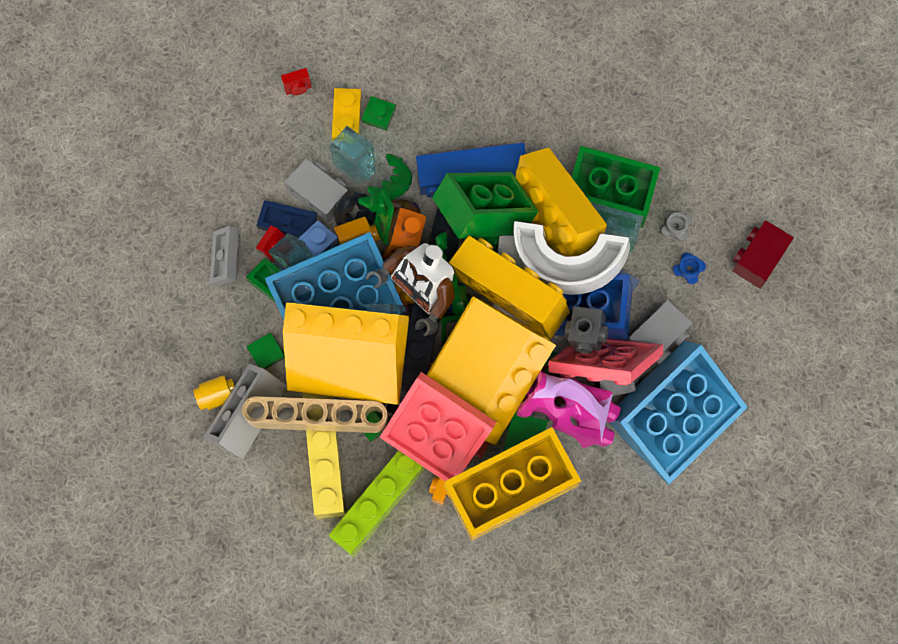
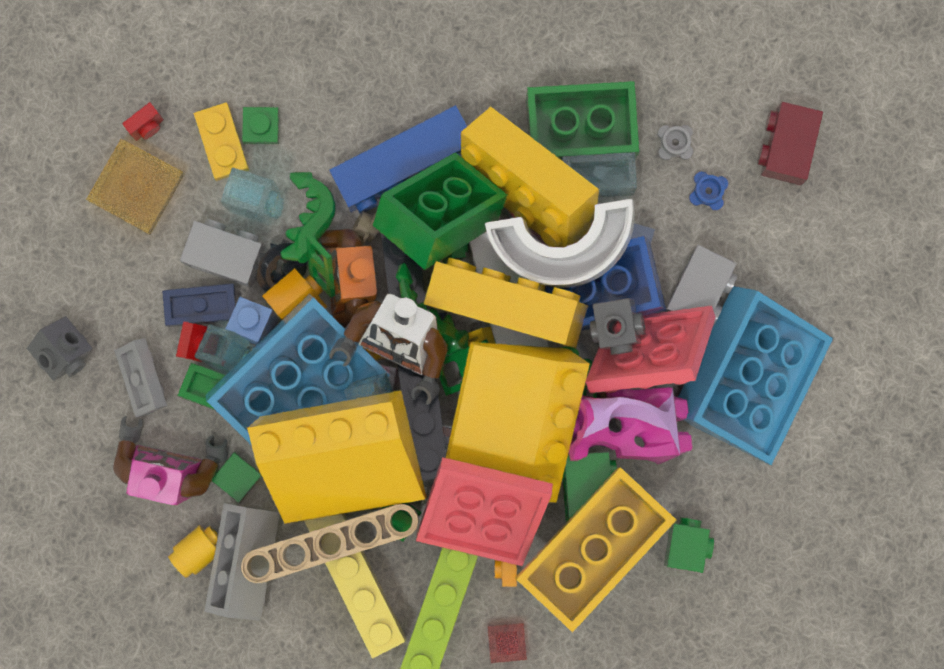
camera: 20 degrees left, 10 degrees up
(174, 214) = (60, 349): none -> dark grey brick
(213, 328) = (164, 474): none -> torso
(273, 124) = (135, 186): none -> clear yellow plate
(420, 545) = (507, 642): none -> clear red plate
(427, 206) = (364, 227): none -> dark tan plate
(584, 520) = (688, 546): none -> green brick

